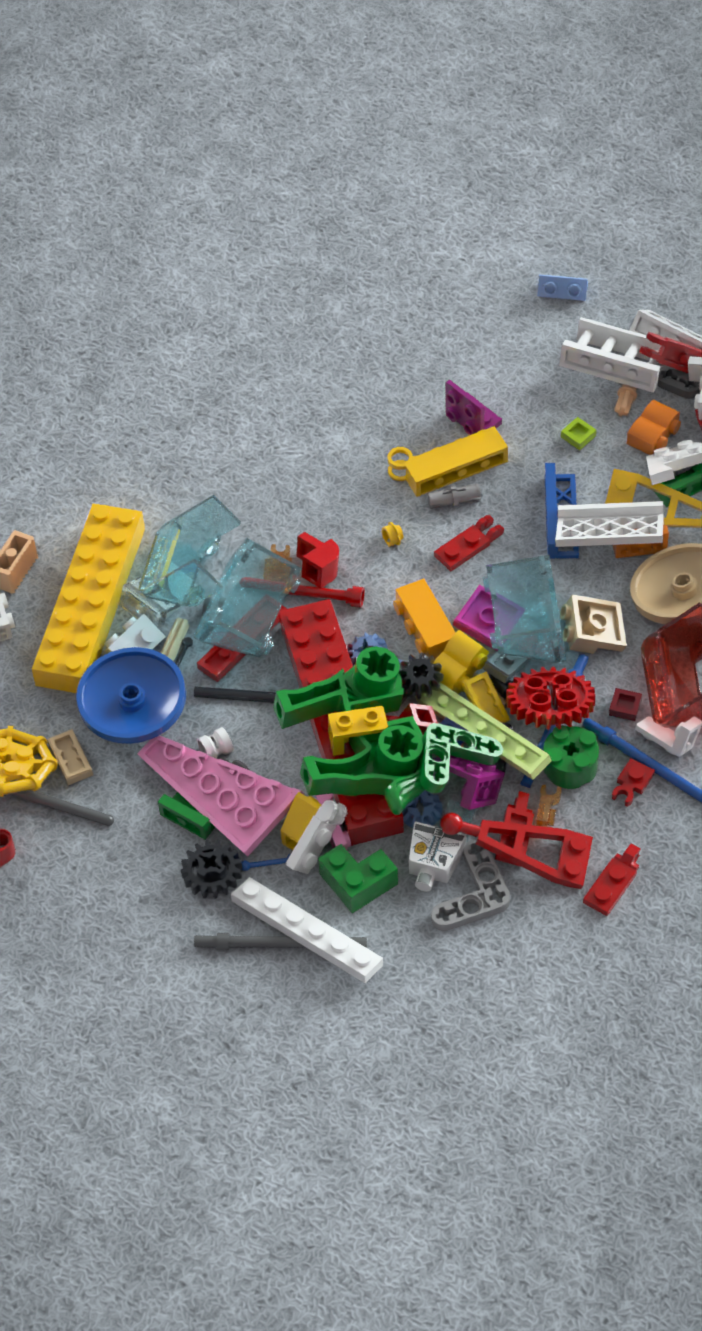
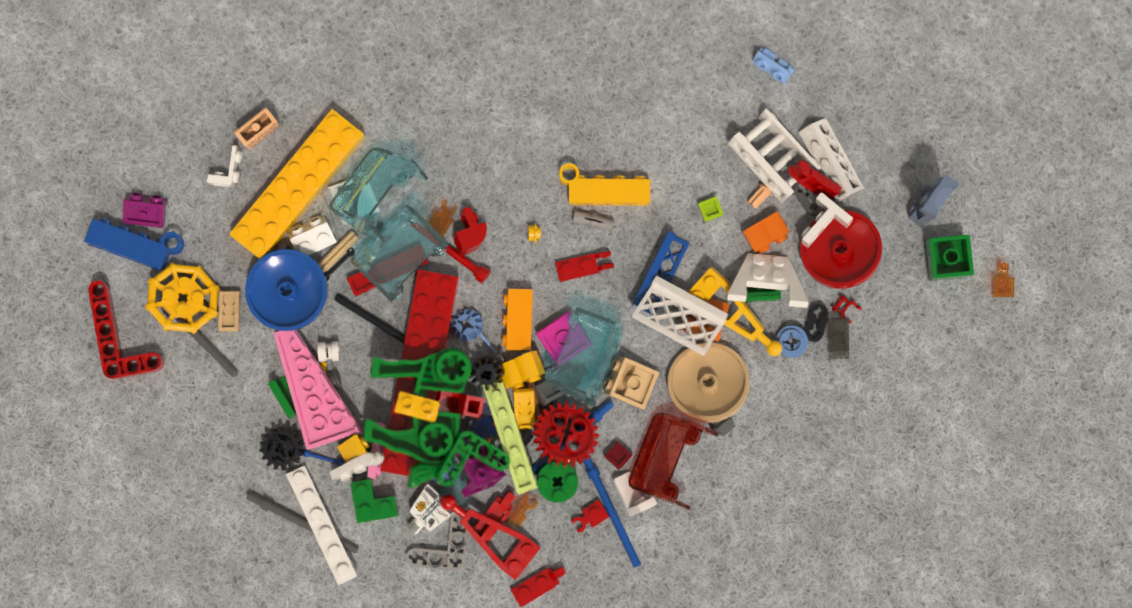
camera: 20 degrees right, 30 degrees up
(468, 410) = (645, 153): magenta bracket -> none

